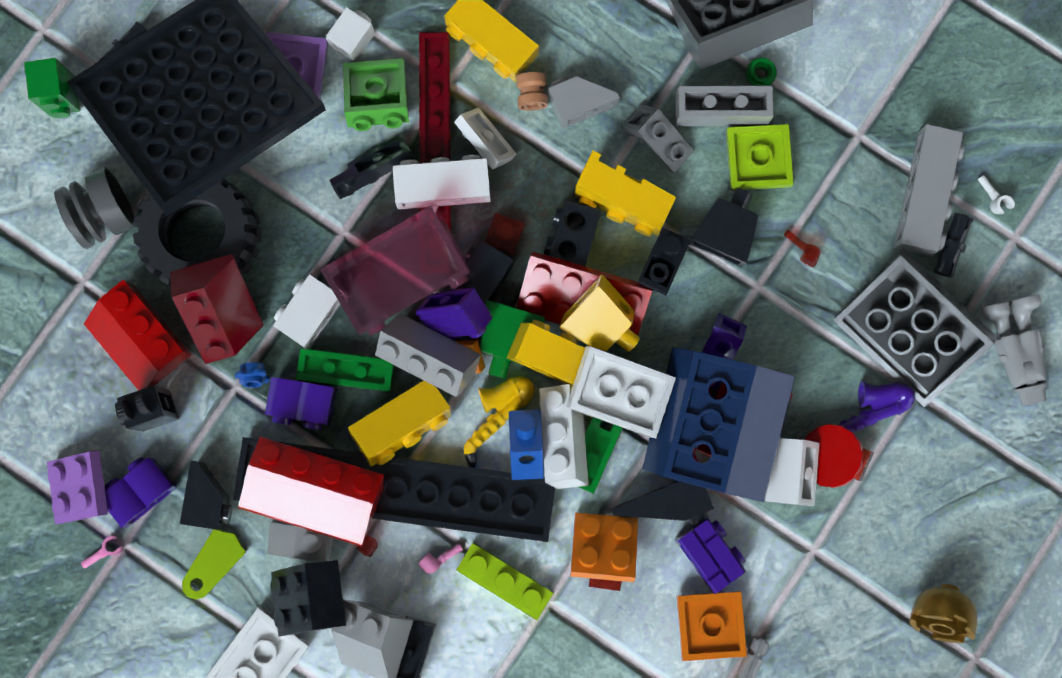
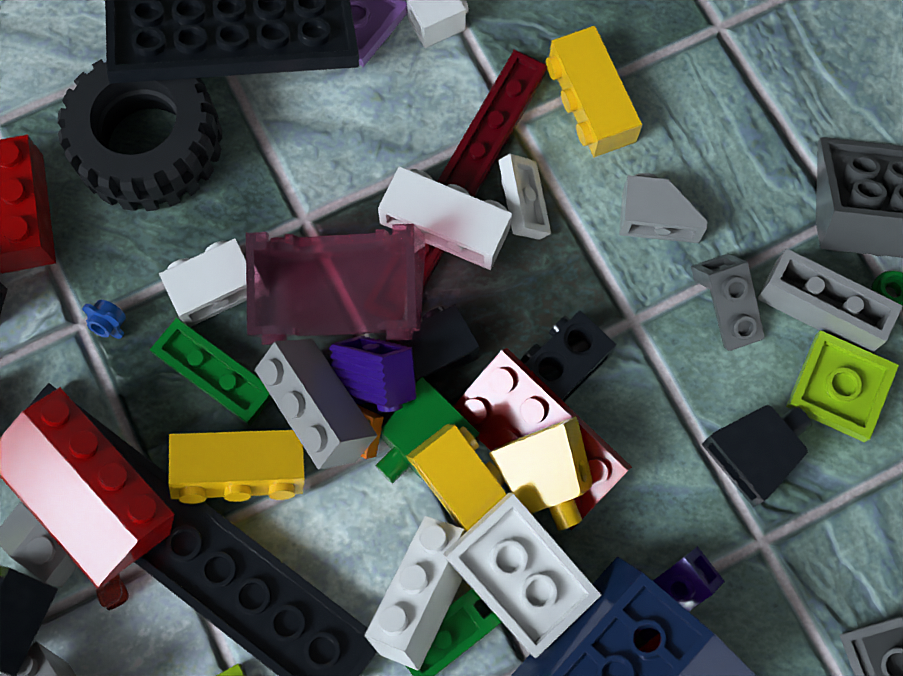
camera: 30 degrees right, 10 degrees down
(90, 210) = (46, 45): dark grey wheel -> none
(216, 307) = (105, 215): dark red slope -> none
(300, 402) = (139, 379): dark purple brick -> none
(371, 167) = (374, 162): black hinge -> none
(375, 94) = (427, 87): bright green plate -> none
(431, 564) = (173, 660): bright pink hand -> none
(504, 233) = (488, 315): clear red plate -> none
(505, 397) = (380, 509): yellow piece -> none
(526, 439) = (371, 568): blue torso -> none
(532, 93) = (606, 175): nougat wheel -> none
(623, 196) = (651, 343): yellow wedge -> none
(664, 261) = (661, 444): black slope -> none
(811, 253) = (851, 534): clear red hand -> none

